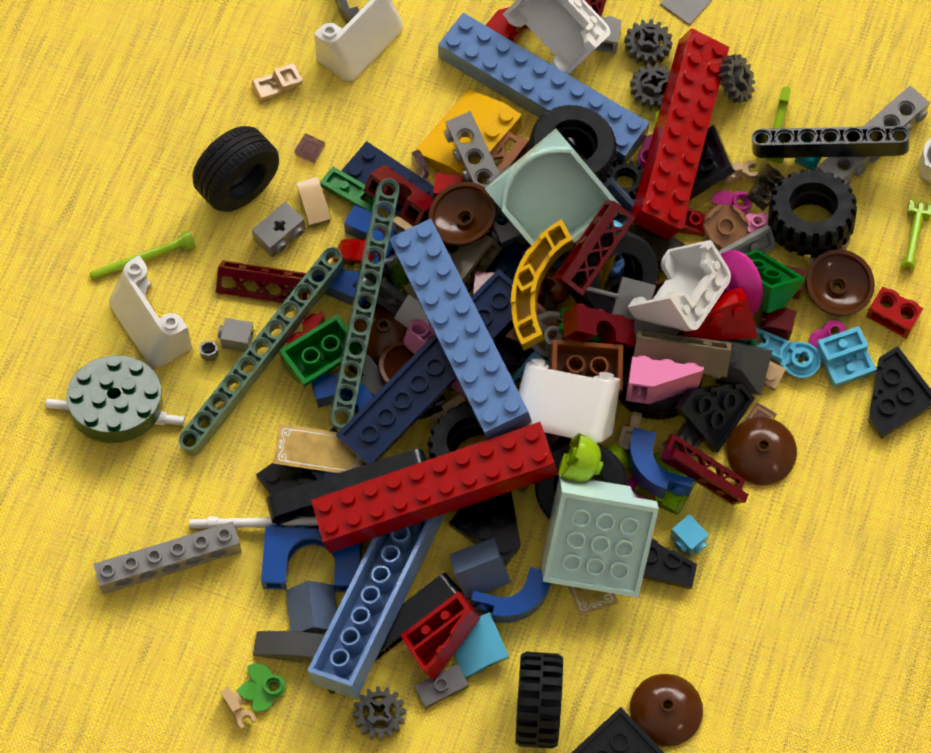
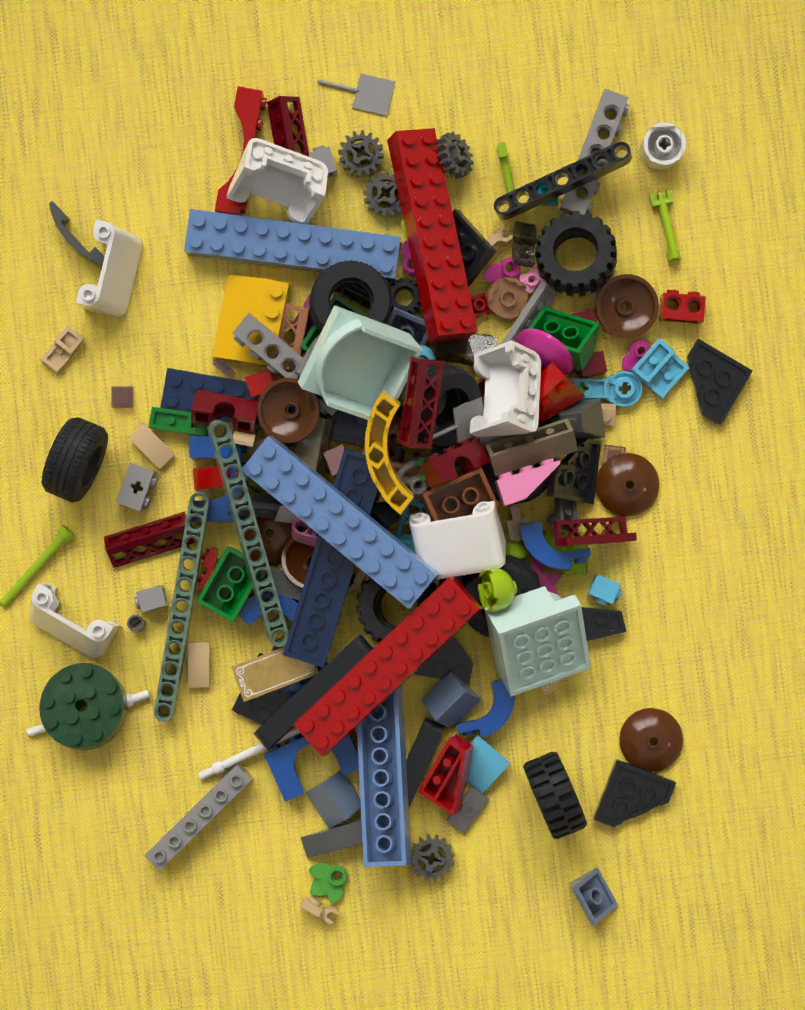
camera: 25 degrees left, 20 degrees up
(247, 417) = (199, 664): none -> tan slope

